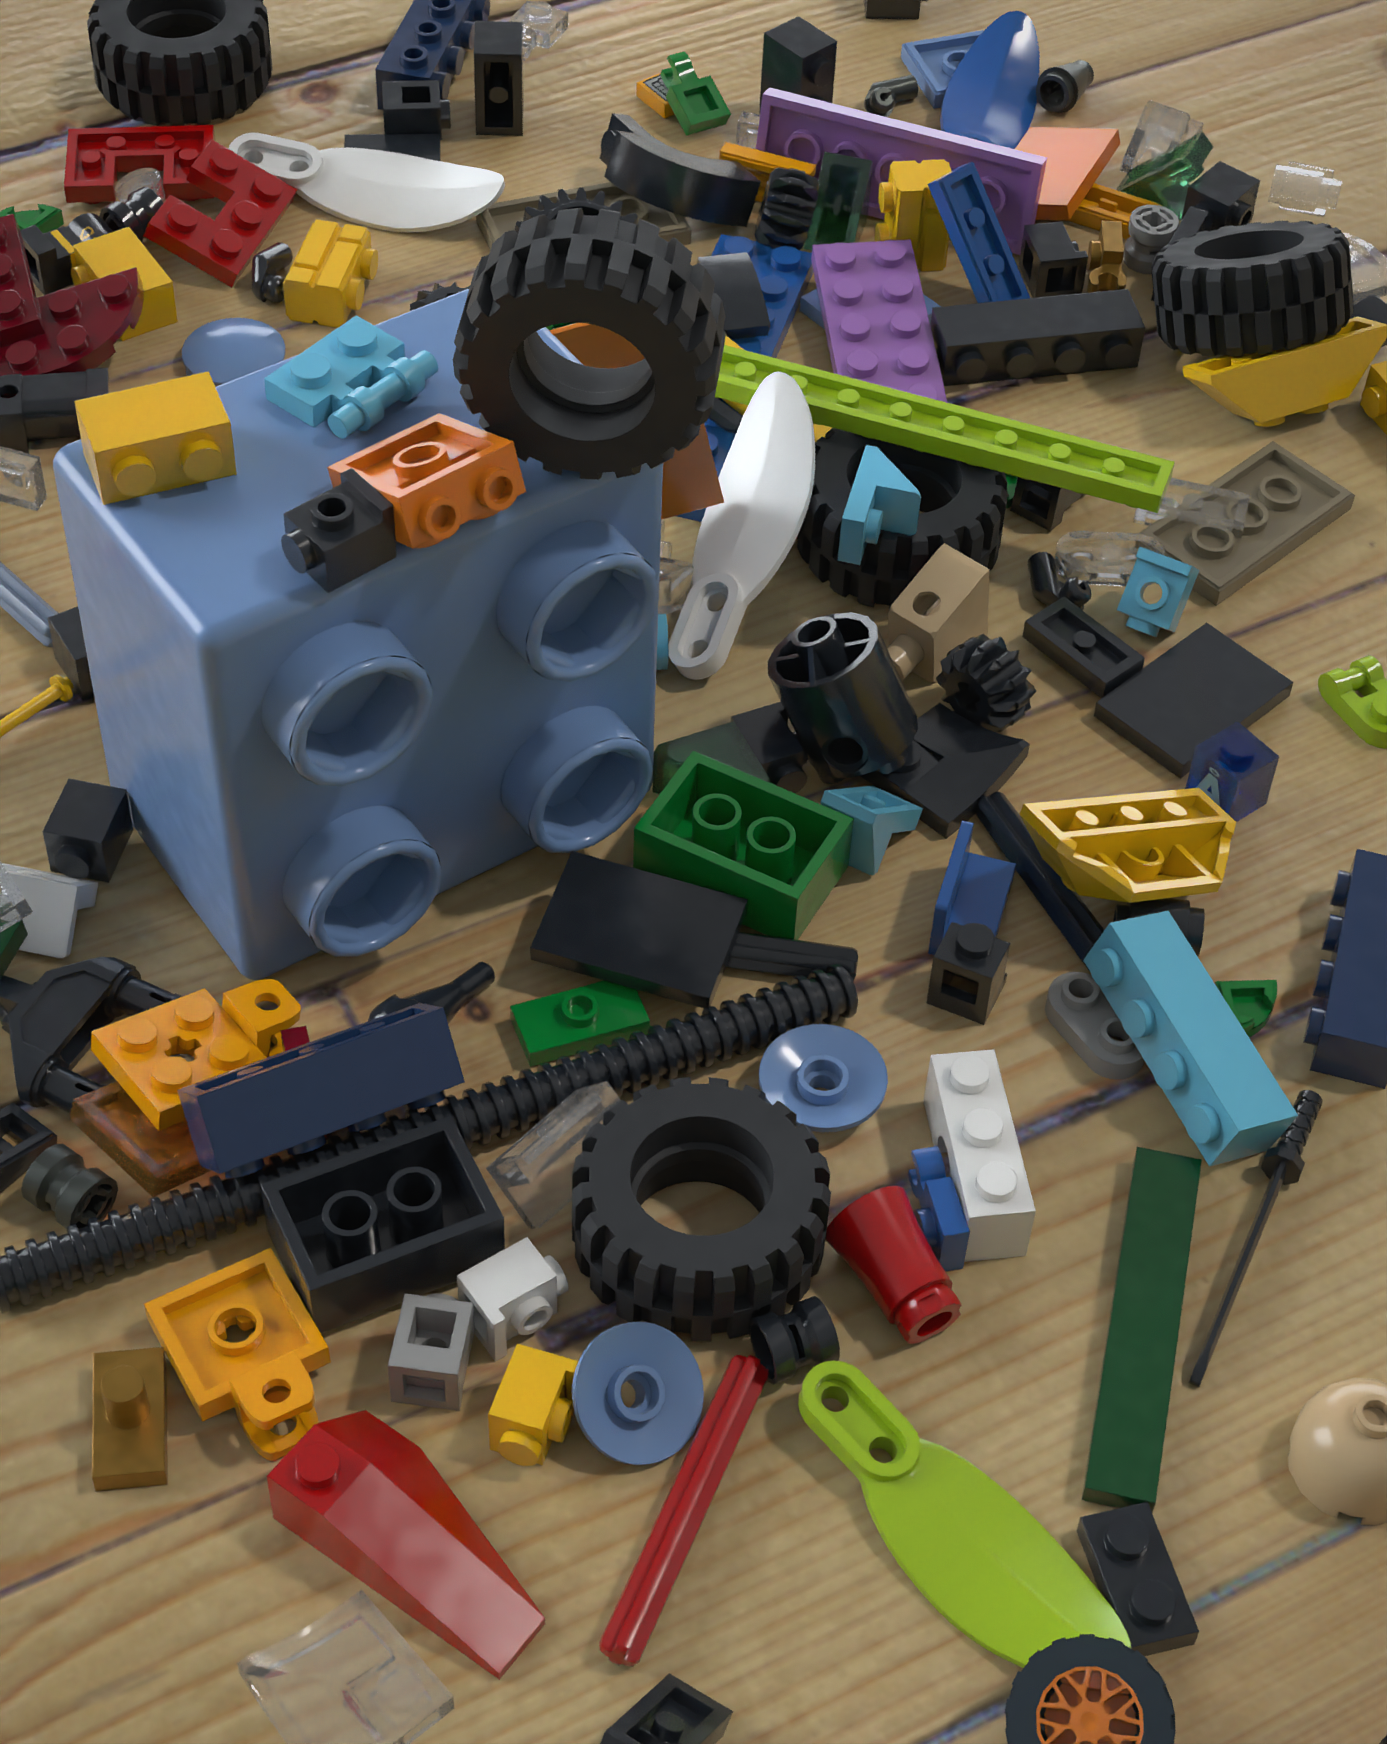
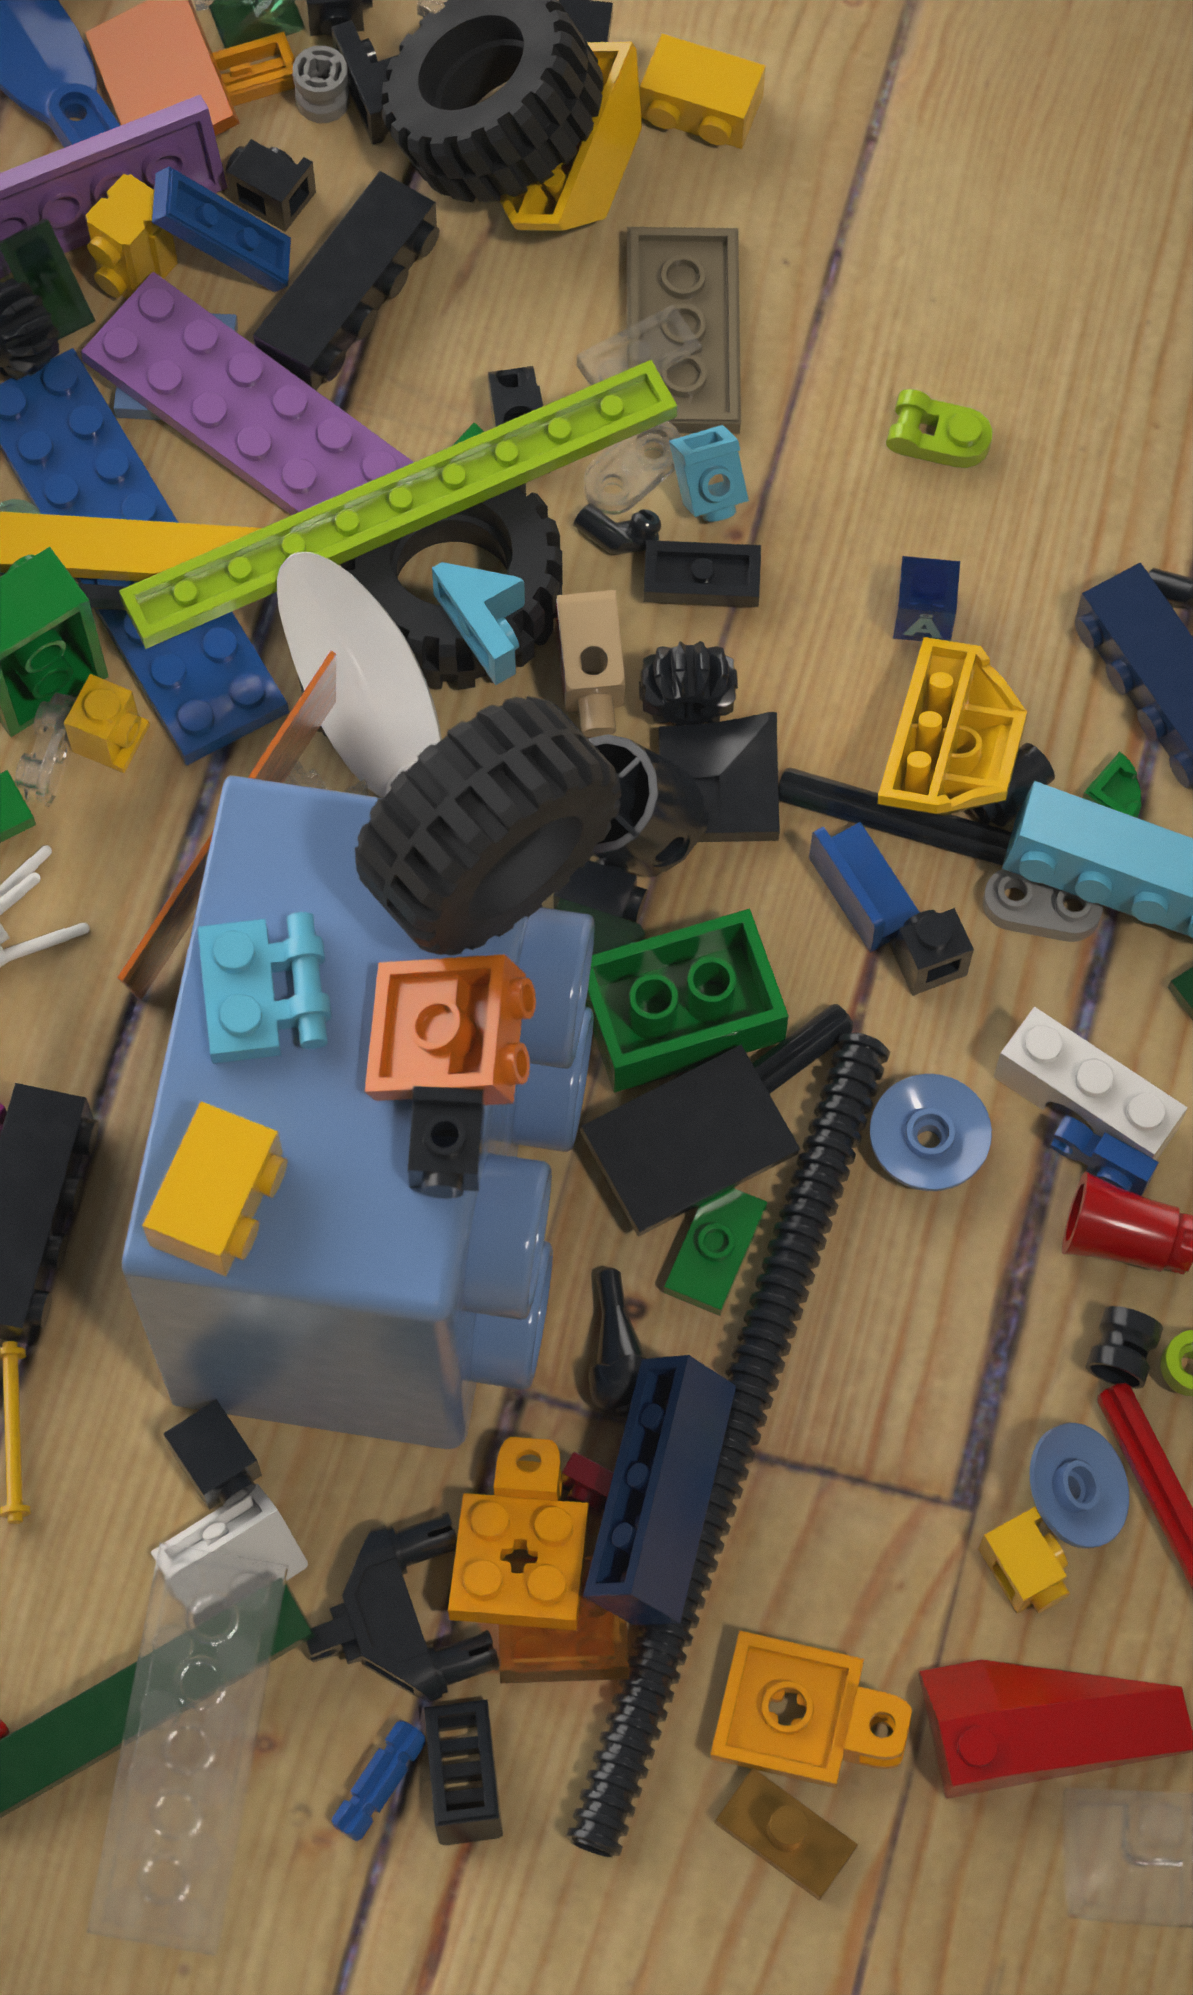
camera: 45 degrees left, 20 degrees up
(68, 1188) = (556, 1729): pearl dark grey wheel -> none
(382, 1223) = (796, 1538): black brick -> none
(431, 1351) = (922, 1563): light grey brick -> none
(511, 1294) = (924, 1501): white brick -> none
(540, 1165) = (834, 1366): clear panel -> none
(699, 1136) = (995, 1242): black tyre -> none
(740, 293) = (82, 465): black slope -> none
(875, 819) = (732, 879): medium azure slope -> none
(1106, 259) = (314, 139): pearl gold plate -> none
(1191, 697) = (819, 545): black tile -> none

